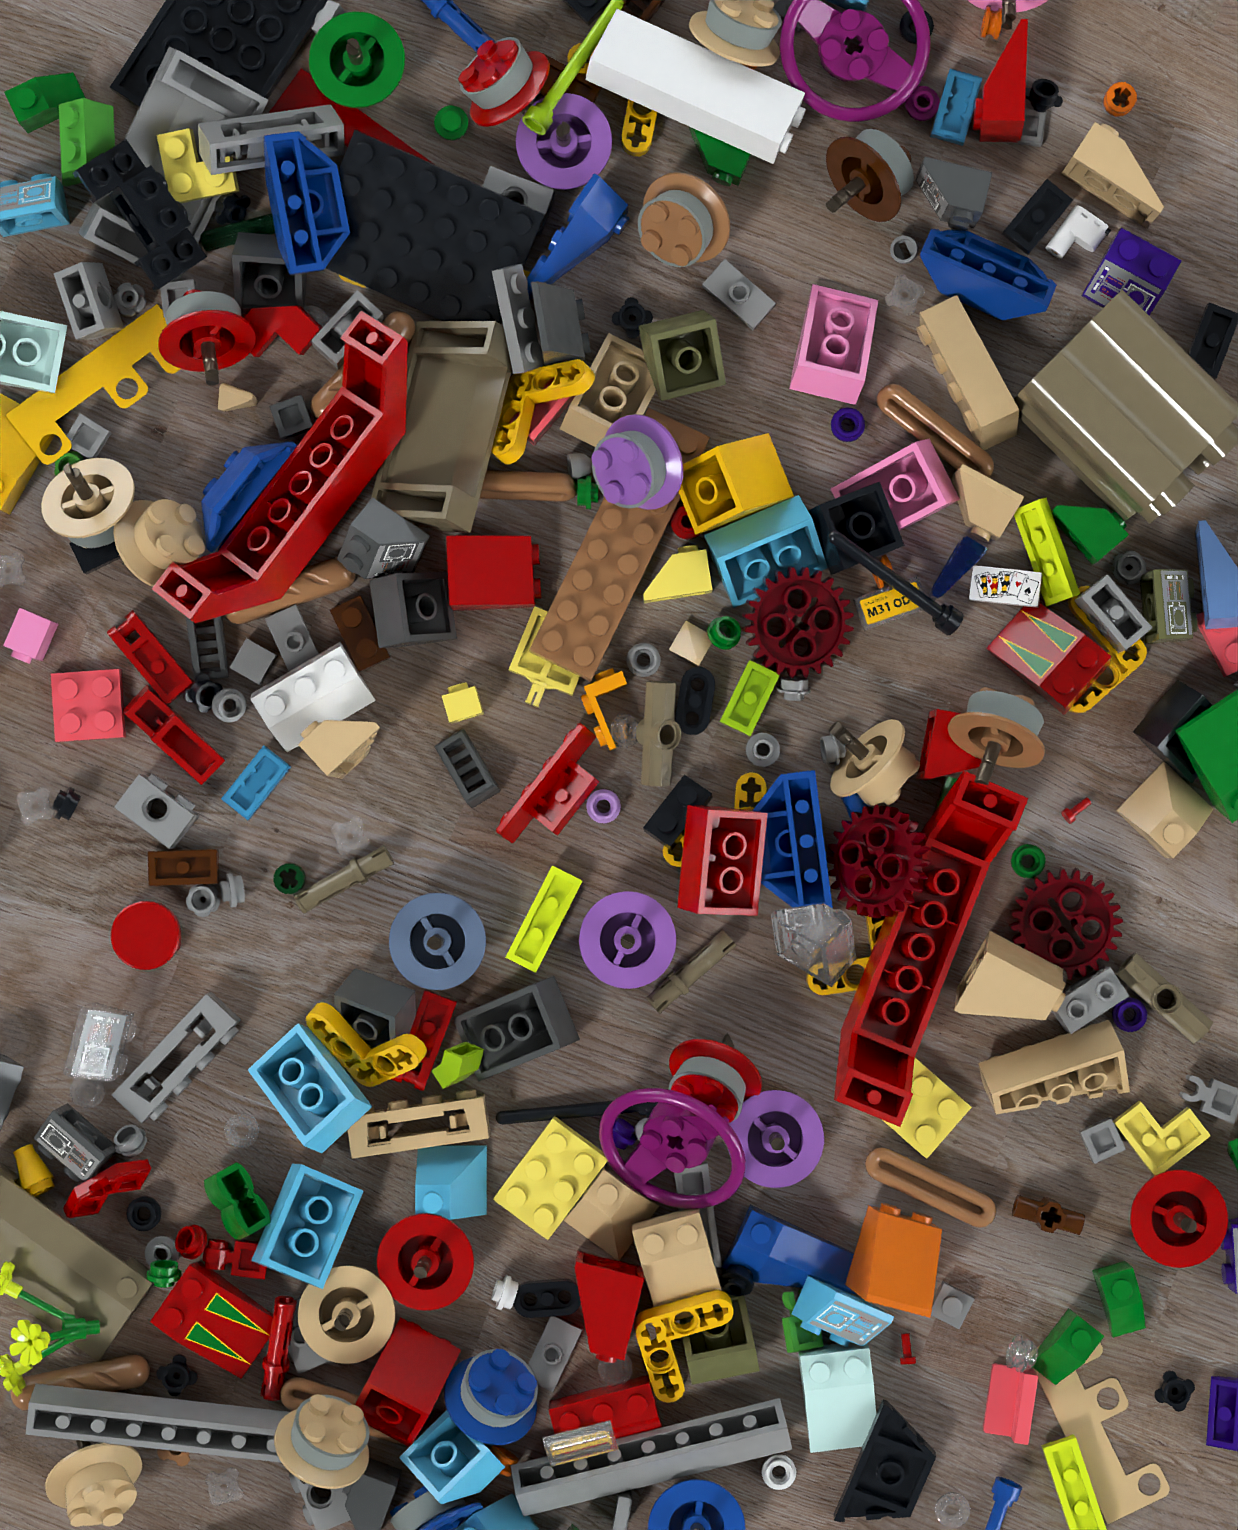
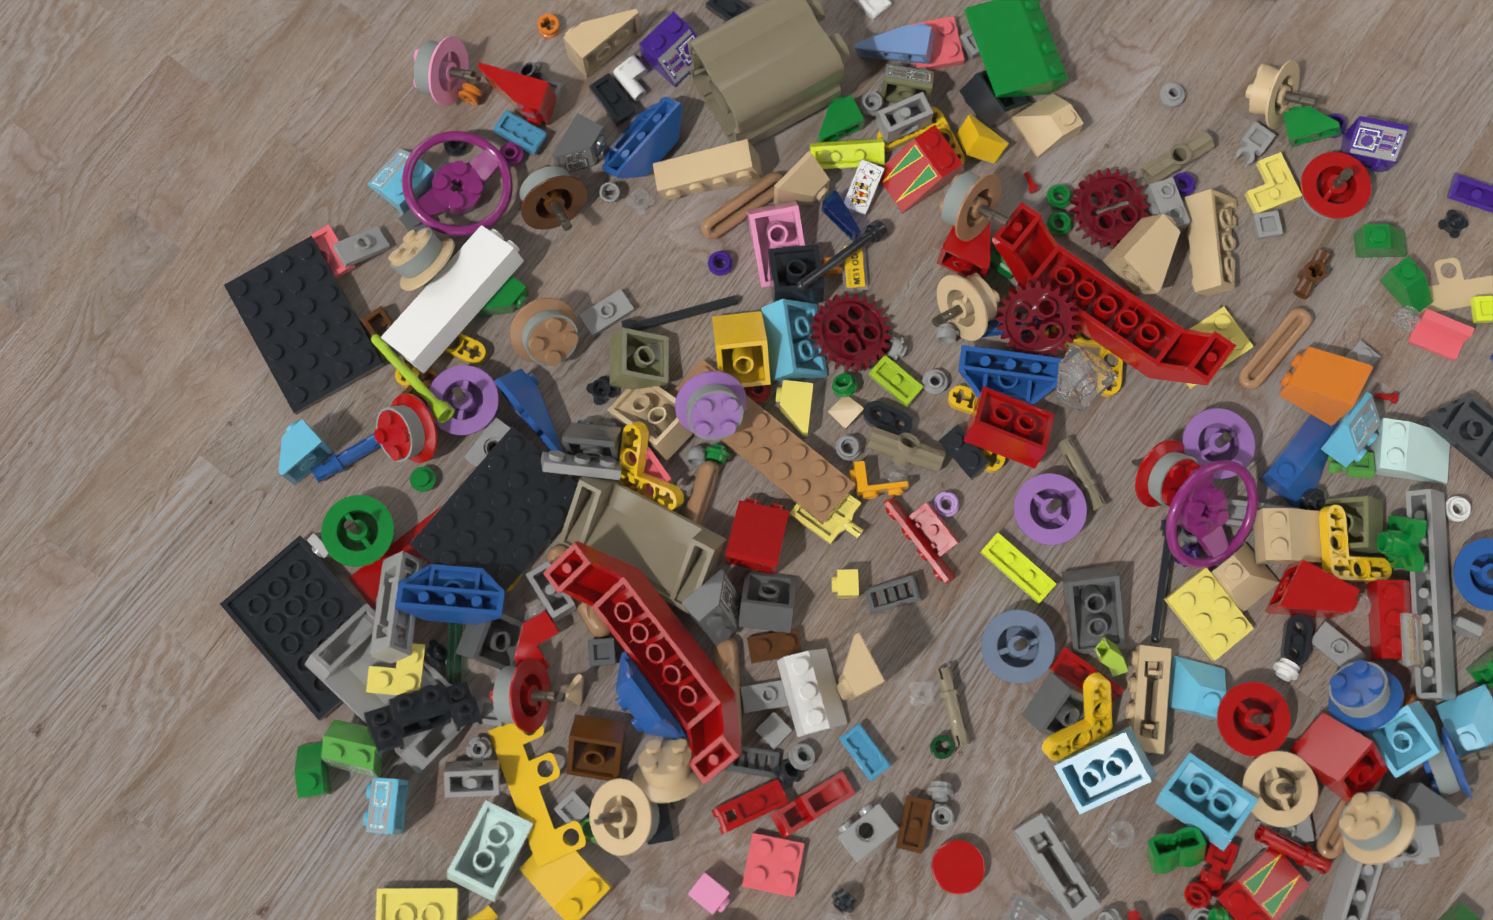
camera: 75 degrees left, 10 degrees down
(170, 444) = (596, 747): none -> reddish brown slope
(706, 1406) = (1402, 543): none -> green plant
(729, 336) = (680, 314): none -> black piece
(834, 344) = (662, 256): bright pink slope -> none
(1076, 851) = (1060, 190): none -> green plate
(1114, 726) = (980, 140): none -> yellow slope

